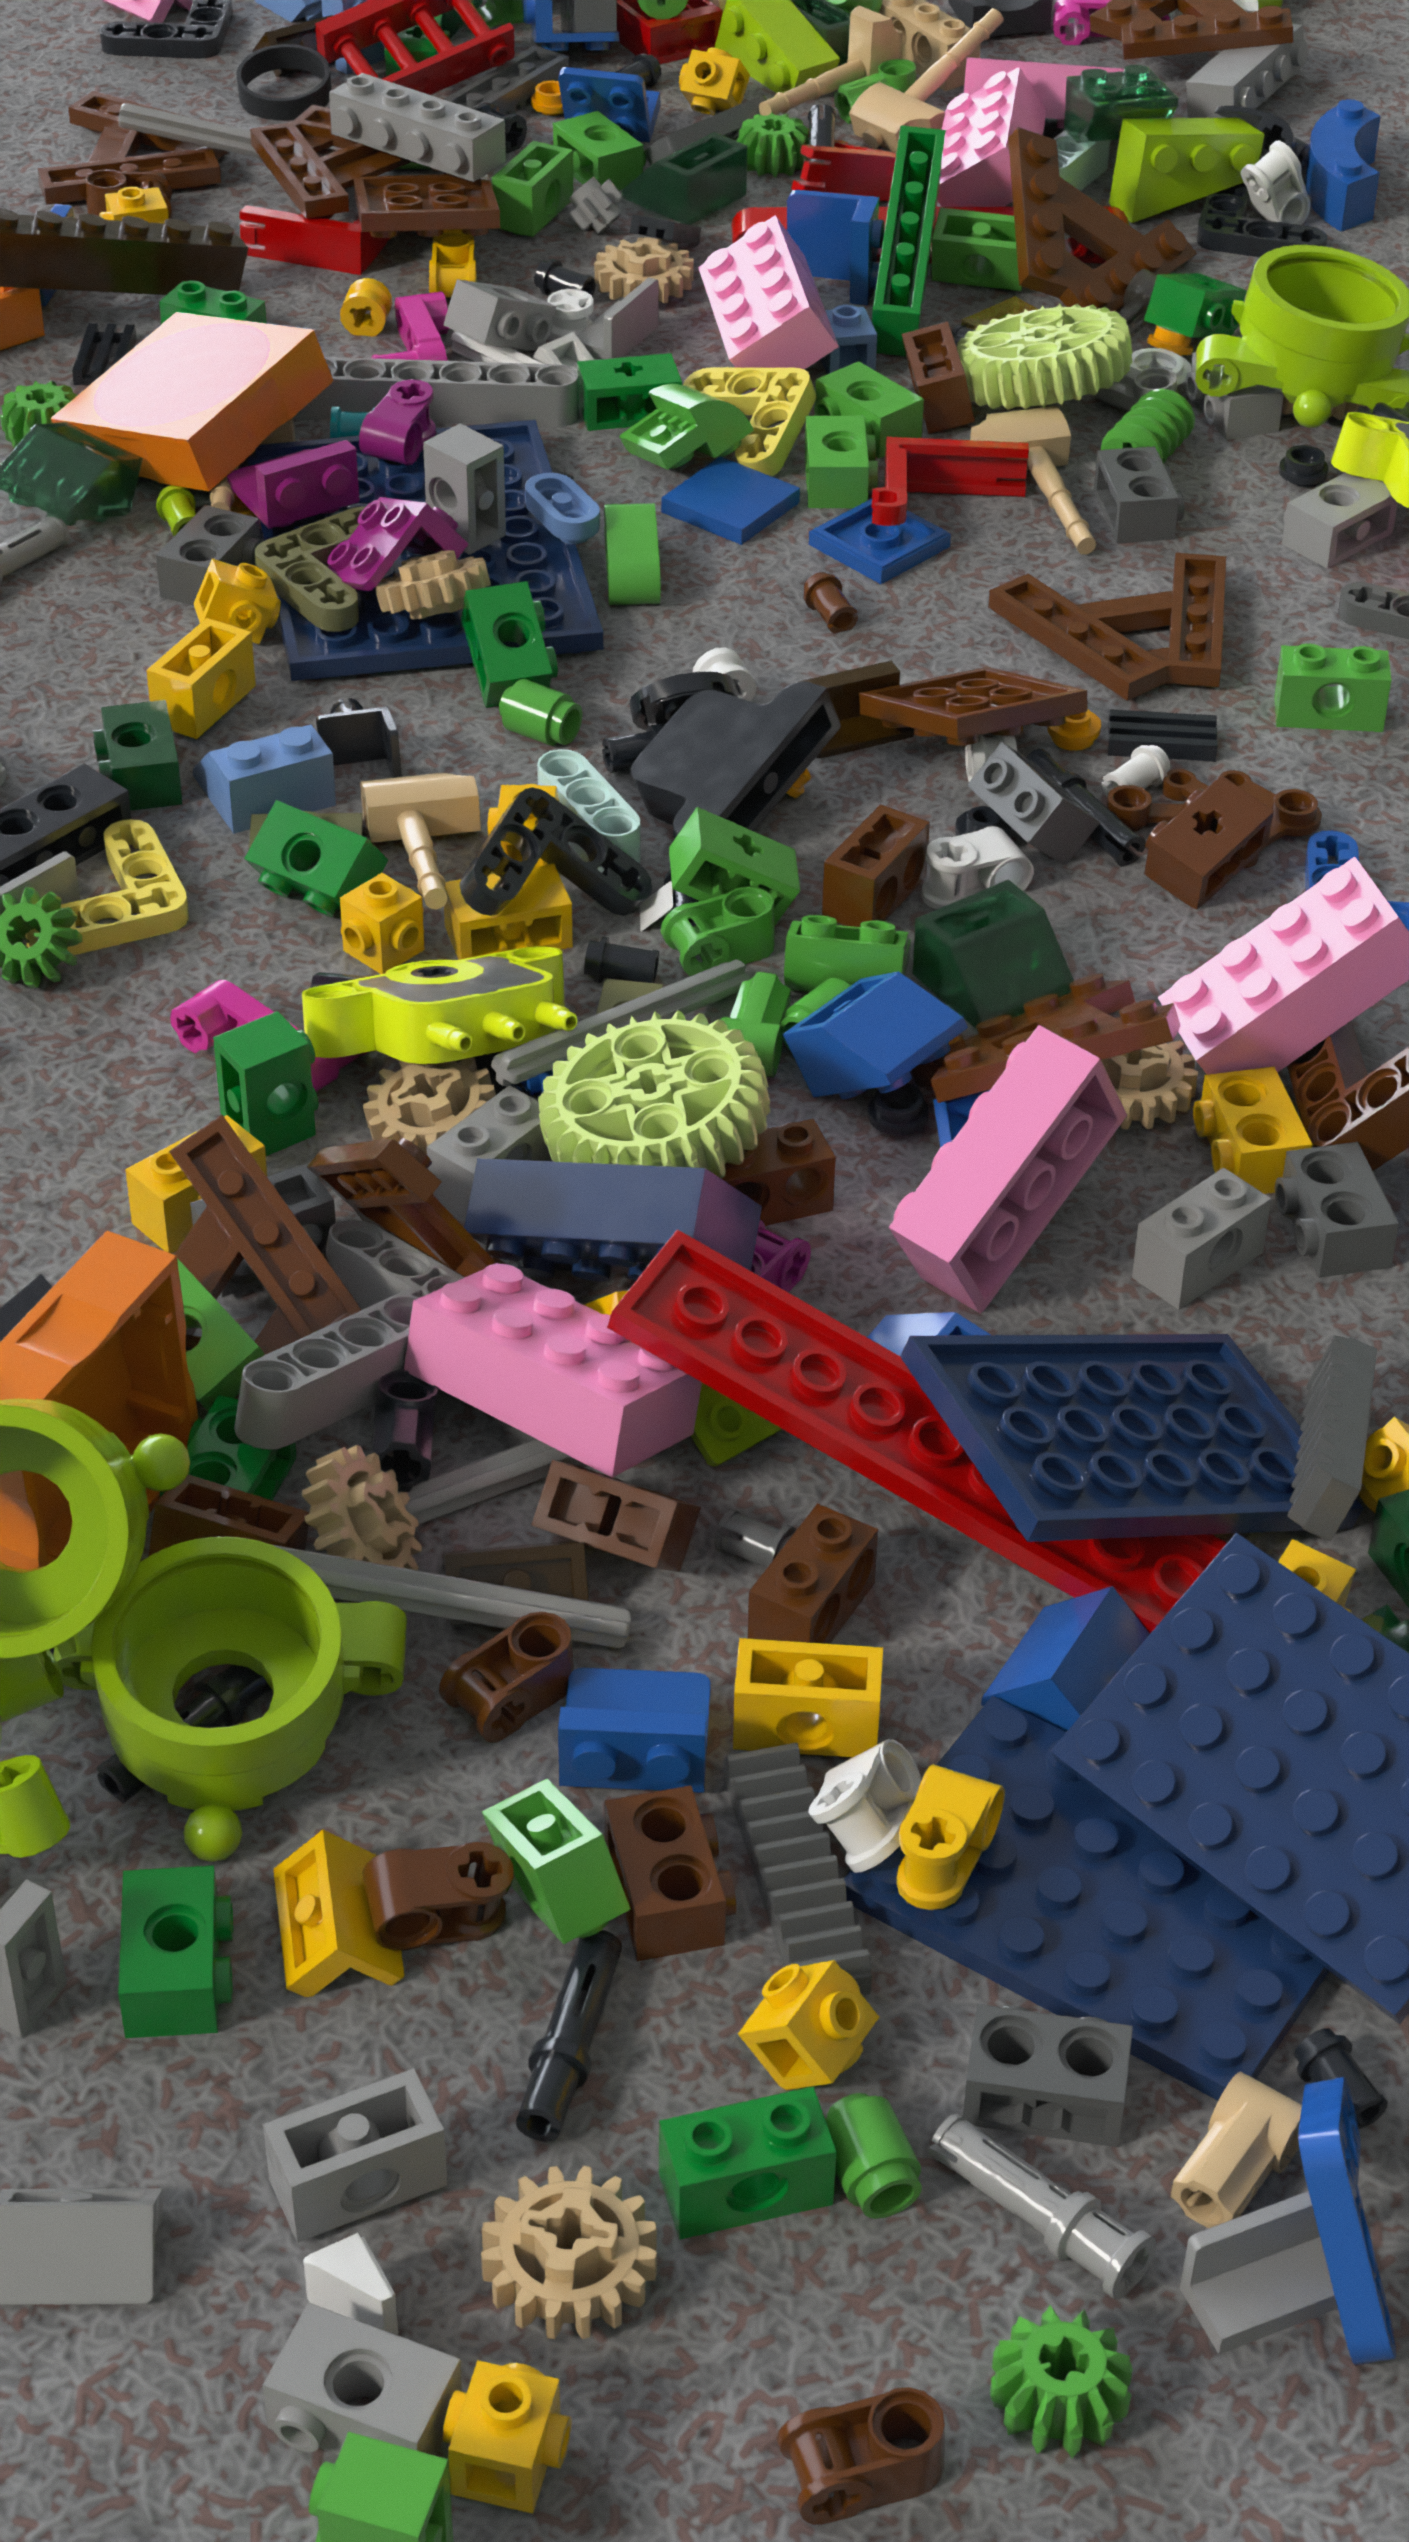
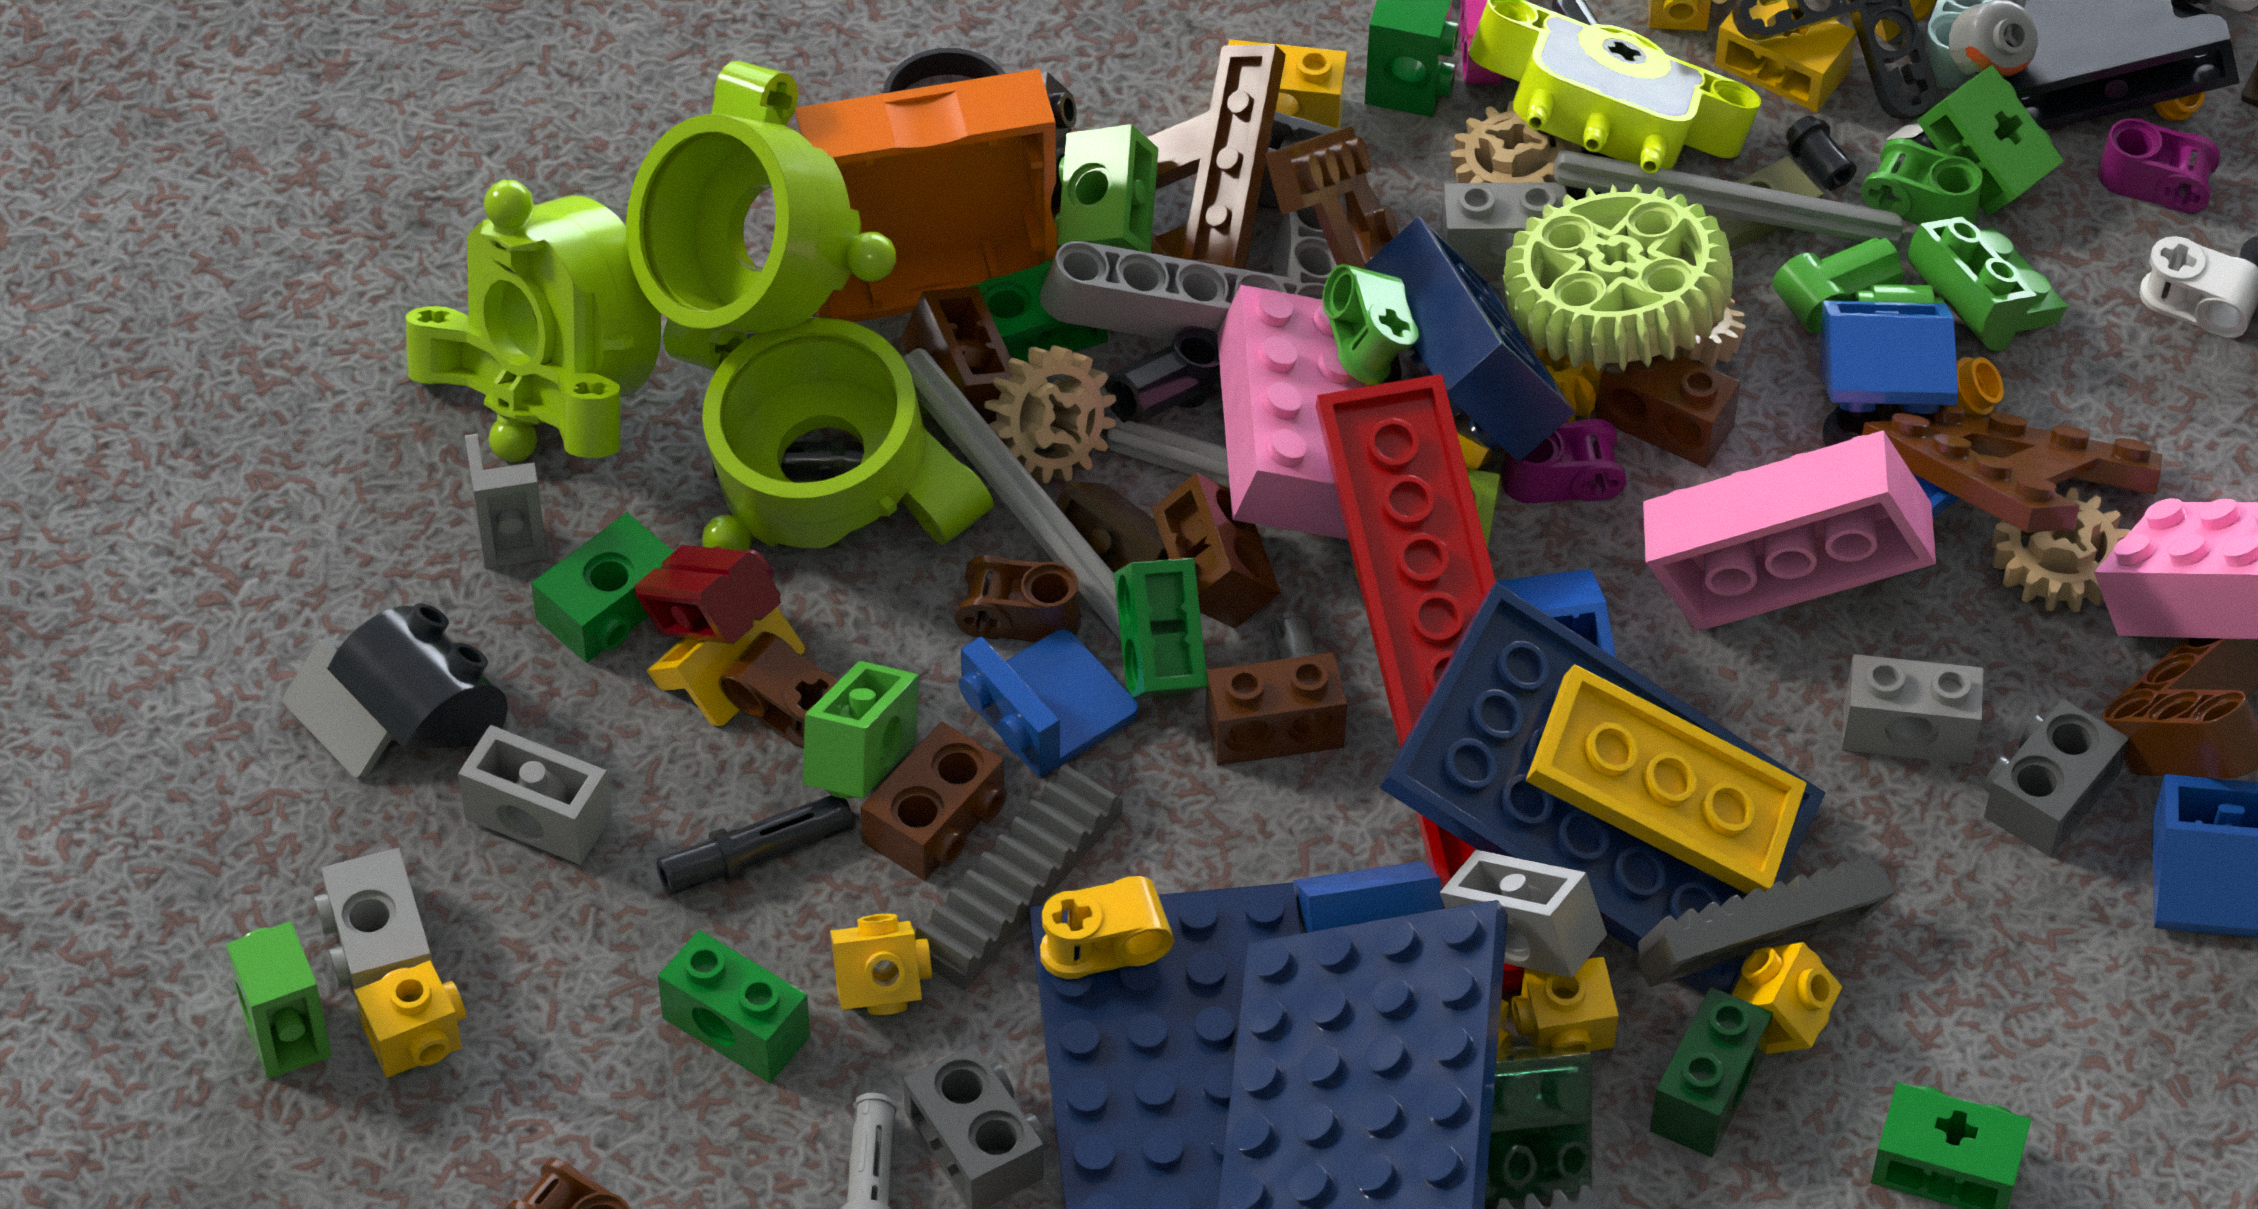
camera: 50 degrees right, 10 degrees up
(135, 2149) = (419, 679): none -> black brick
(294, 1866) = (708, 593): none -> dark red brick
(351, 2283) = (453, 868): white slope -> none
(557, 1252) = (1368, 320): none -> bright green piece
(577, 2245) = (577, 957): tan gear -> none
(663, 798) = (1993, 34): none -> light grey head
(670, 1594) = (1160, 628): none -> green brick
(807, 1696) = (1159, 773): yellow brick -> none
(830, 816) = (2154, 162): none -> magenta piece
(868, 1801) = (1096, 860): white piece -> none
(873, 2155) = (812, 1072): bright green brick -> none
(875, 867) = (2103, 224): reddish brown brick -> none
(990, 954) = (2091, 366): clear green slope -> none
(1171, 1387) = (1666, 781): none -> yellow plate
(1194, 1534) = (1548, 908): none -> light grey brick
(1249, 1124) = (2089, 658): yellow brick -> none

